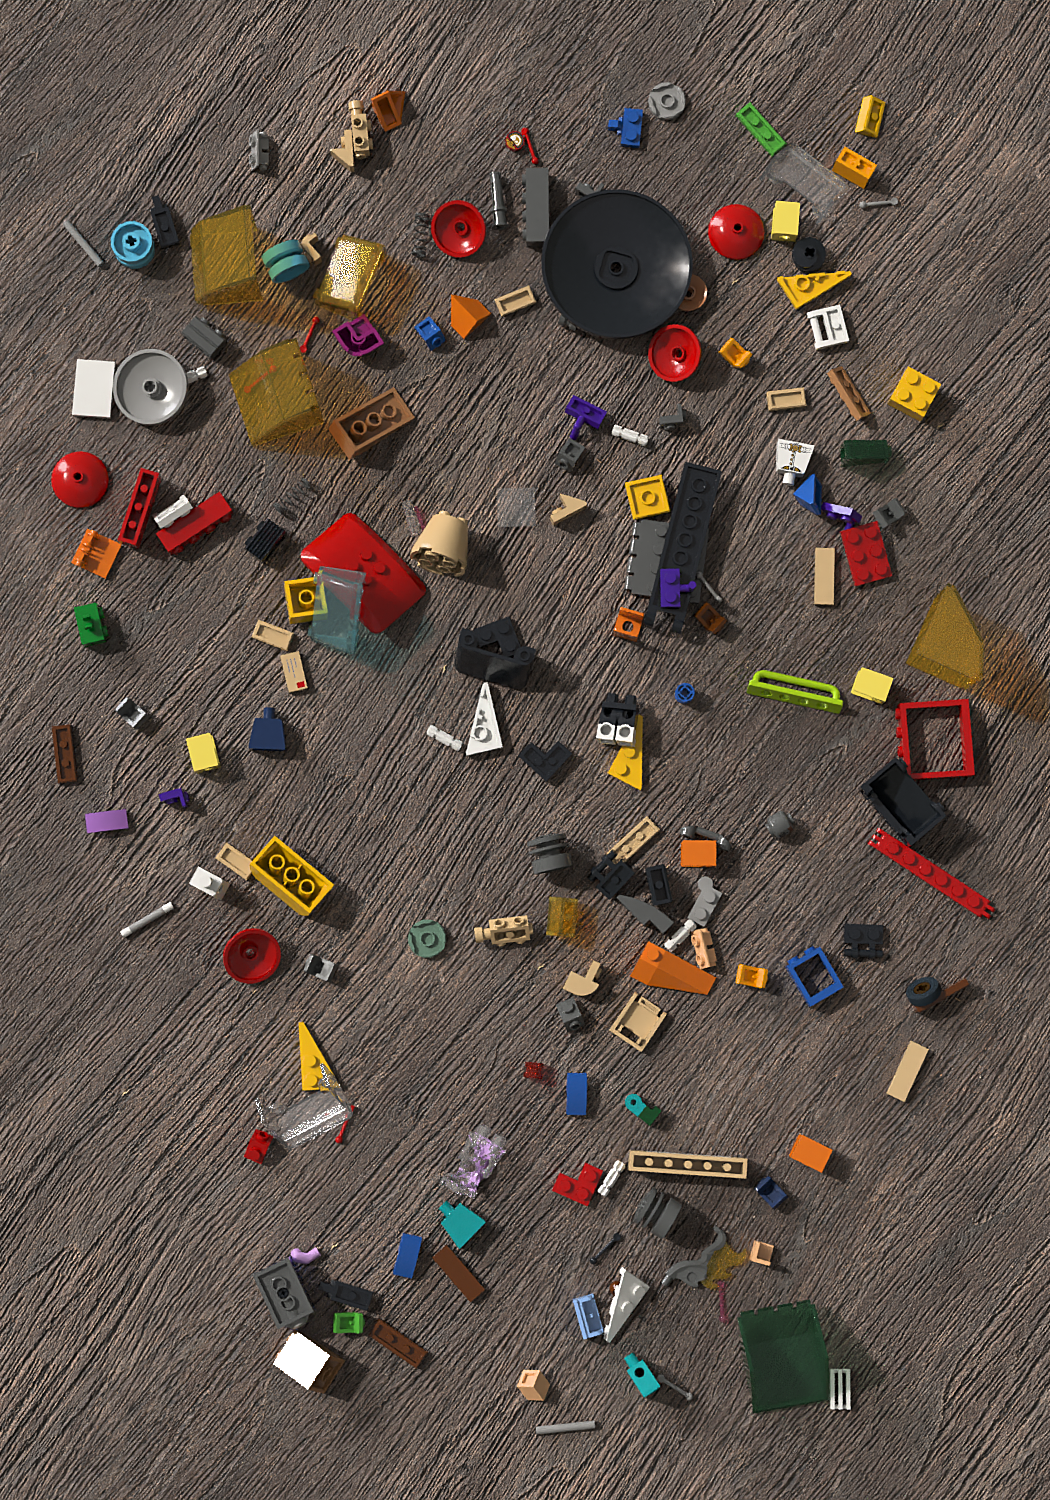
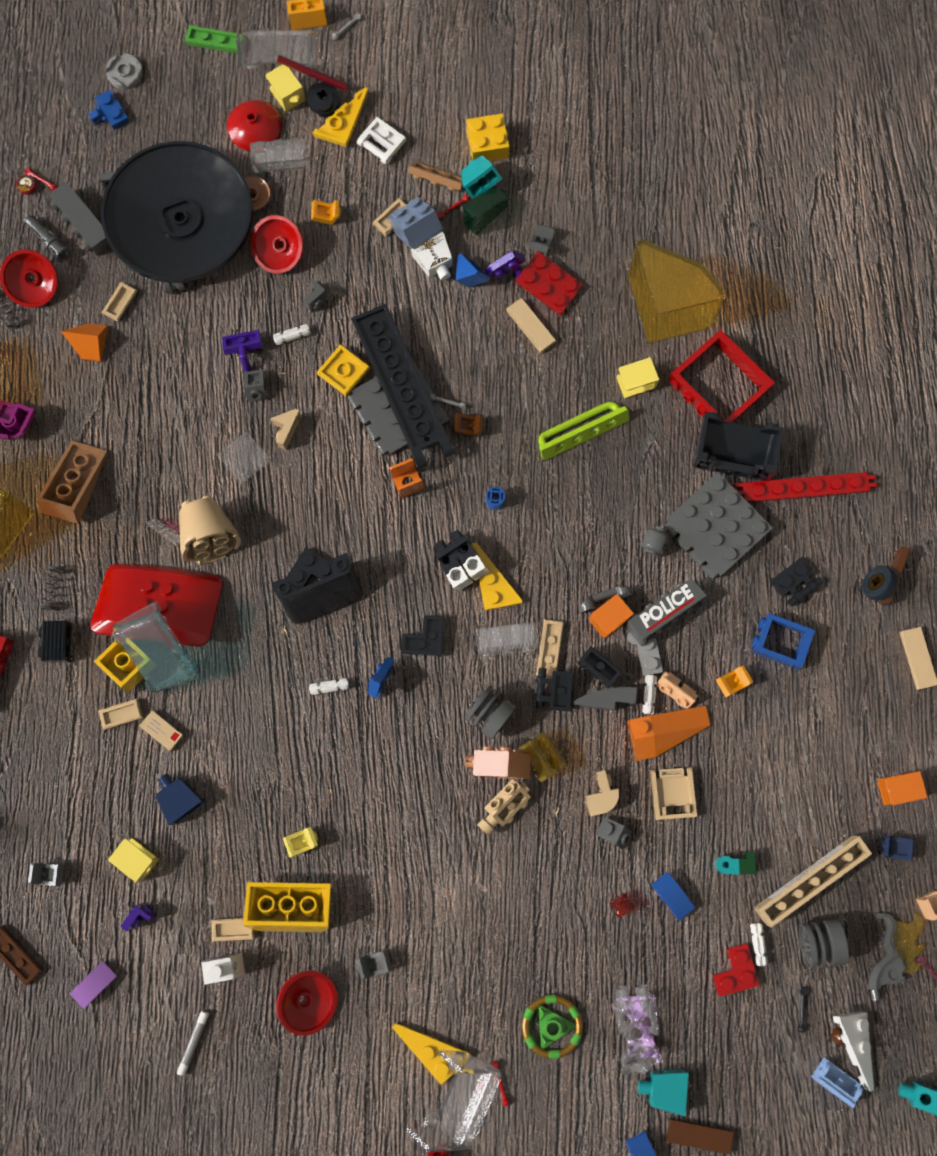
camera: 30 degrees left, 5 degrees down
(335, 837) = (301, 841): none -> light yellow bracket
(414, 1114) = (552, 1026): none -> bright green piece
(427, 938) = (444, 865): sand green tile -> none
(430, 333) = (69, 375): blue bracket -> none
(482, 764) = (378, 681): none -> blue hinge
(485, 731) = (358, 654): white wing -> none
(527, 896) = (500, 763): none -> brick
(605, 808) = (506, 639): none -> clear brick
(671, 588) = (419, 422): dark purple plate -> none
(736, 276) = (279, 155): none -> clear brick
(743, 884) = (666, 612): none -> dark grey brick
(798, 421) = (415, 222): none -> sand blue brick
(815, 228) = (313, 73): none -> dark red bar
(826, 428) = (466, 198): none -> red hinge
(837, 849) = (717, 526): none -> dark grey hinge
(879, 422) = (479, 176): none -> teal torso

